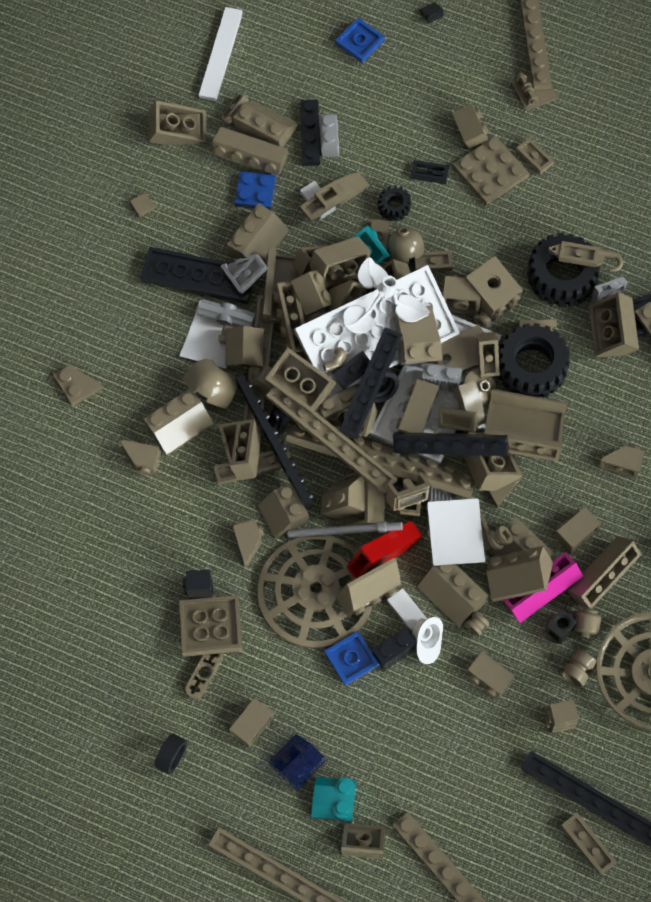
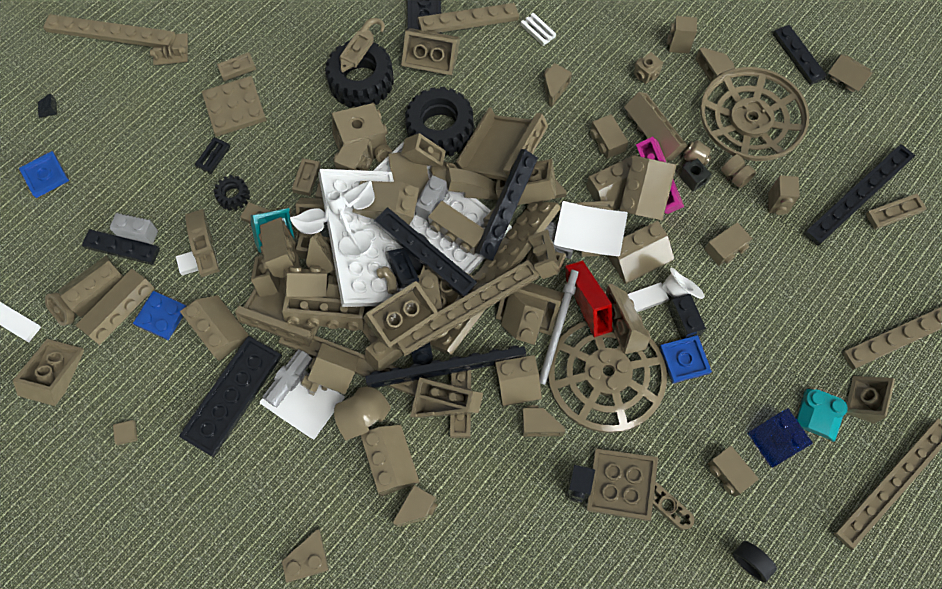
camera: 75 degrees left, 0 degrees up
(245, 271) = (250, 344): light grey wing -> none
(405, 244) = (281, 192): dark tan cylinder -> none
(457, 419) = (479, 196): dark tan tile -> none
(470, 126) = (183, 105): dark tan brick -> none
(476, 624) = (677, 241): dark tan wheel -> none
(500, 537) = (607, 193): dark tan wheel -> none
(548, 322) = (400, 115): dark tan plate -> none
(608, 288) = (390, 42): light grey wing -> none

